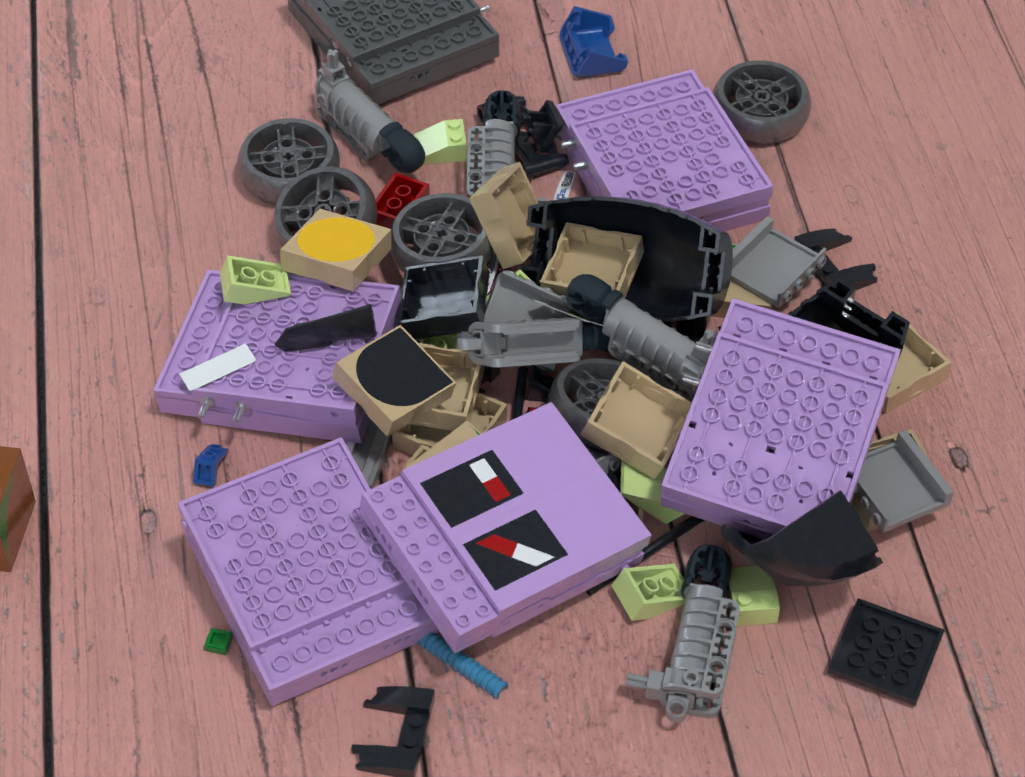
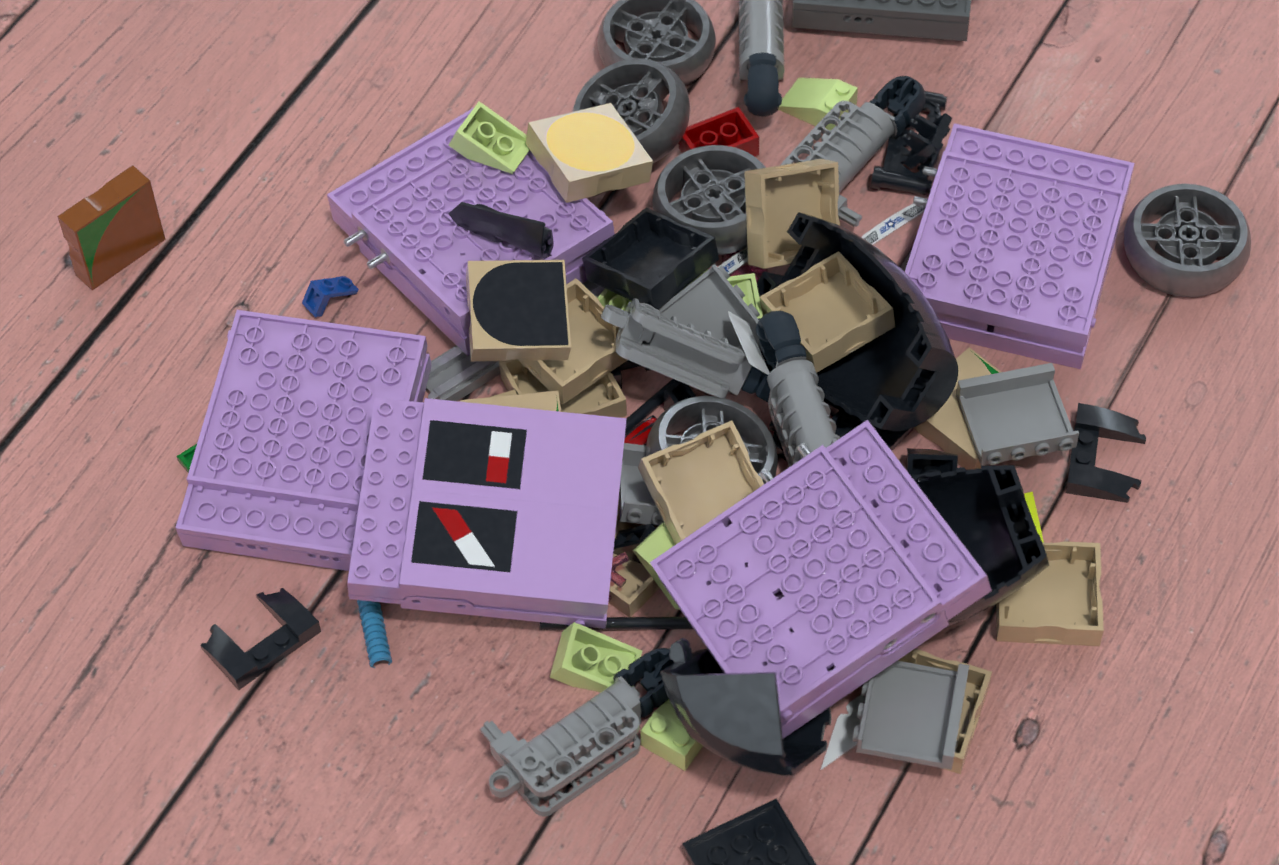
camera: 40 degrees right, 5 degrees up
(217, 367) = (390, 205): white sticker -> none
(588, 43) = (1073, 78): blue windscreen -> none

